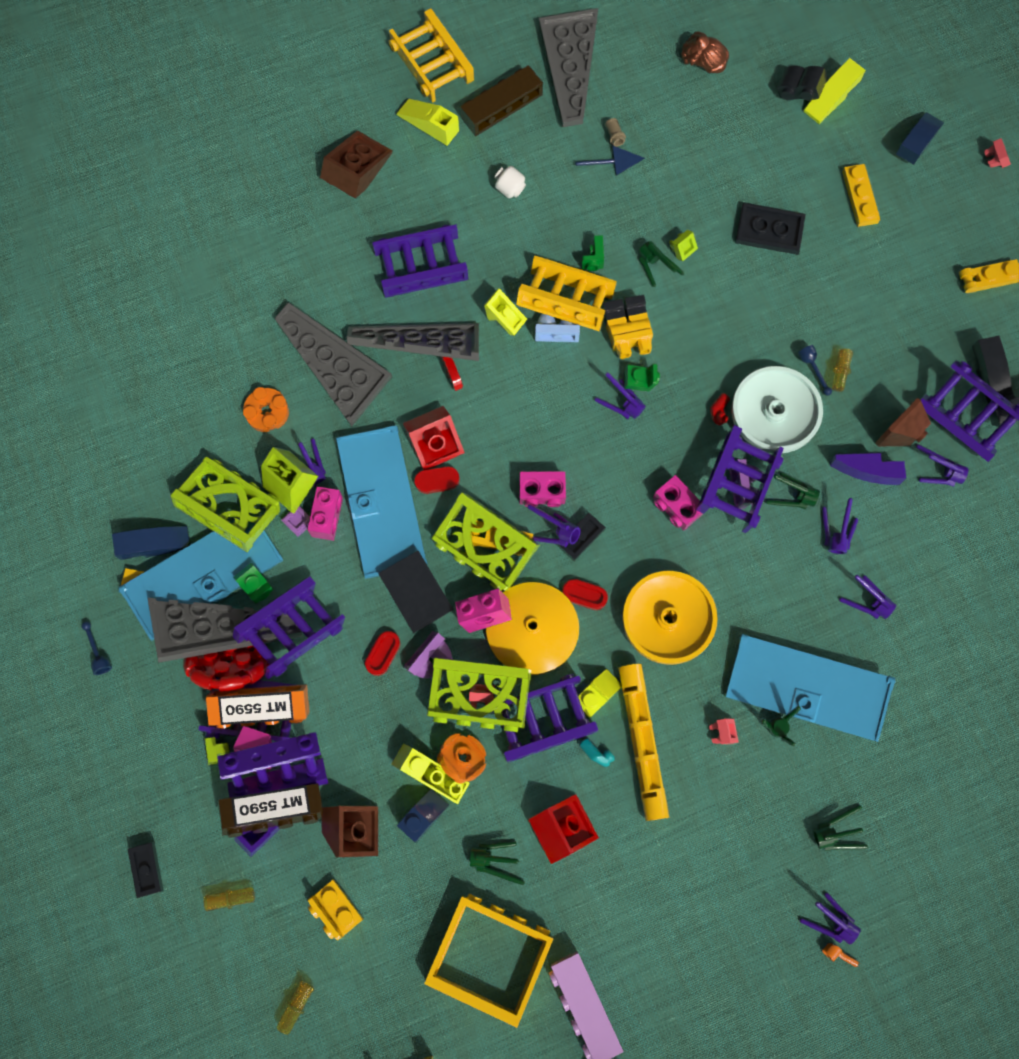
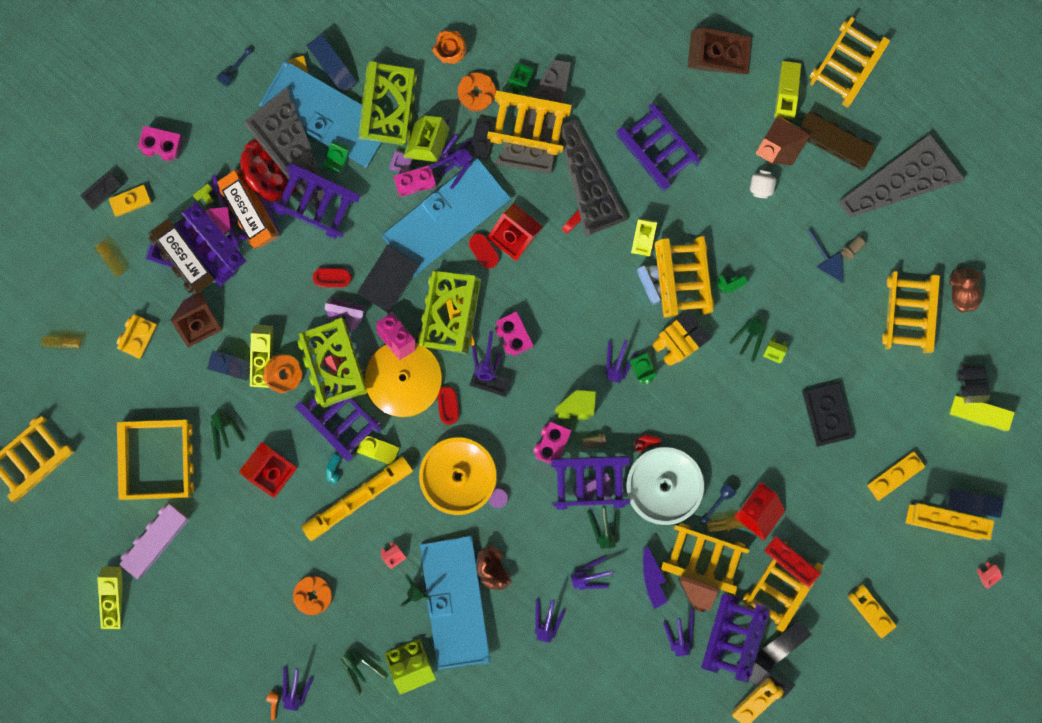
camera: 65 degrees right, 10 degrees up
(126, 768) = (161, 139): none -> dark pink brick
(176, 842) = (130, 201): none -> yellow plate
(203, 411) = (450, 47): none -> orange hair
(278, 360) = (520, 79): none -> green bracket
(318, 347) = (523, 103): none -> yellow fence
(318, 427) = (480, 143): none -> black plate
(328, 455) = (461, 159): none -> dark purple plant
(477, 143) = (783, 142): none -> copper slope
(650, 454) = (577, 404): none -> lime slope
(695, 460) = (594, 441): none -> dark tan pin
(713, 92) = (927, 323): none -> yellow fence
(714, 586) = (498, 498): none -> medium lavender tile
(745, 846) = (302, 600): none -> orange plate
(791, 630) = (491, 569): none -> copper hair
(842, 330) = (760, 511): none -> red slope
(860, 771) = (409, 666): none -> lime slope
(877, 427) = (708, 577): none -> yellow fence
(913, 320) = (792, 562): none -> red tile
(936, 157) = (949, 522): none -> yellow fence
(941, 327) = (791, 604): none -> yellow fence

